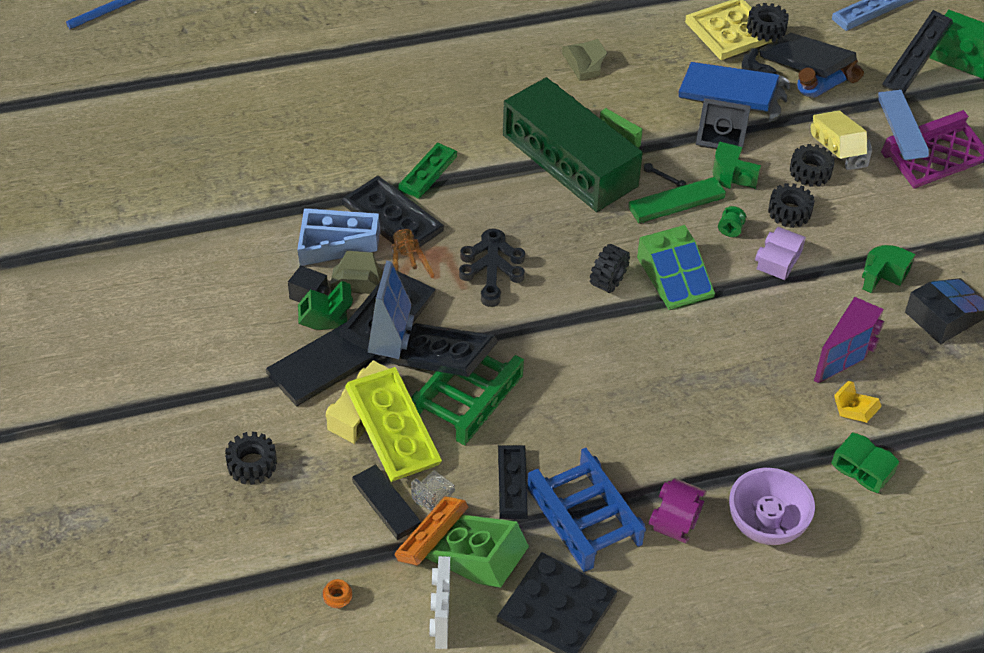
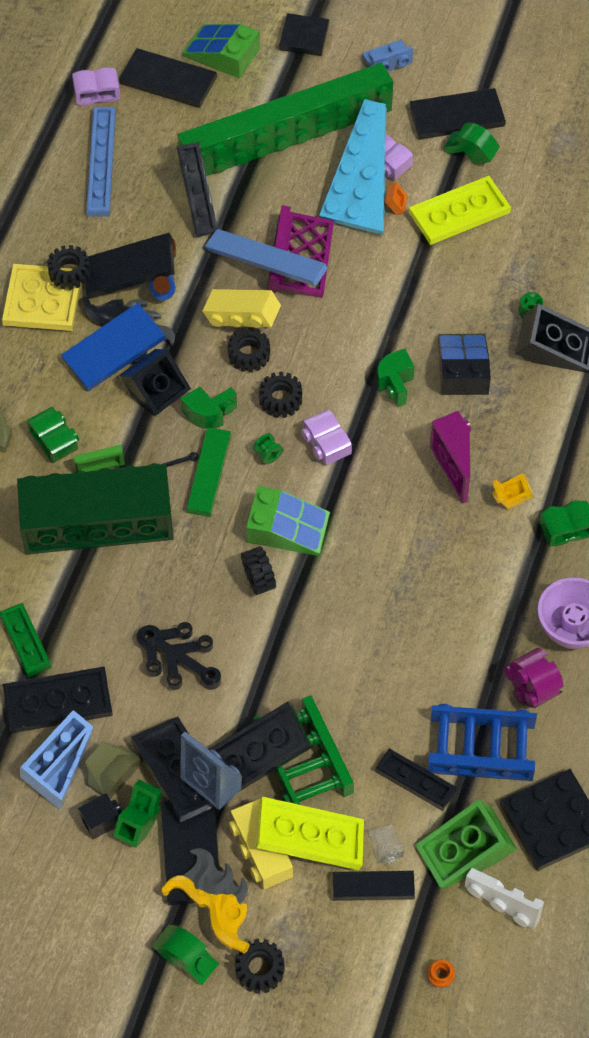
camera: 55 degrees left, 10 degrees up
(224, 399) = (187, 951): none -> green brick
(292, 393) = (217, 892): none -> piece
(406, 245) = (111, 708): clear orange plant -> none
(431, 530) = (428, 867): orange tile -> none
(617, 92) = (53, 434): none -> green brick

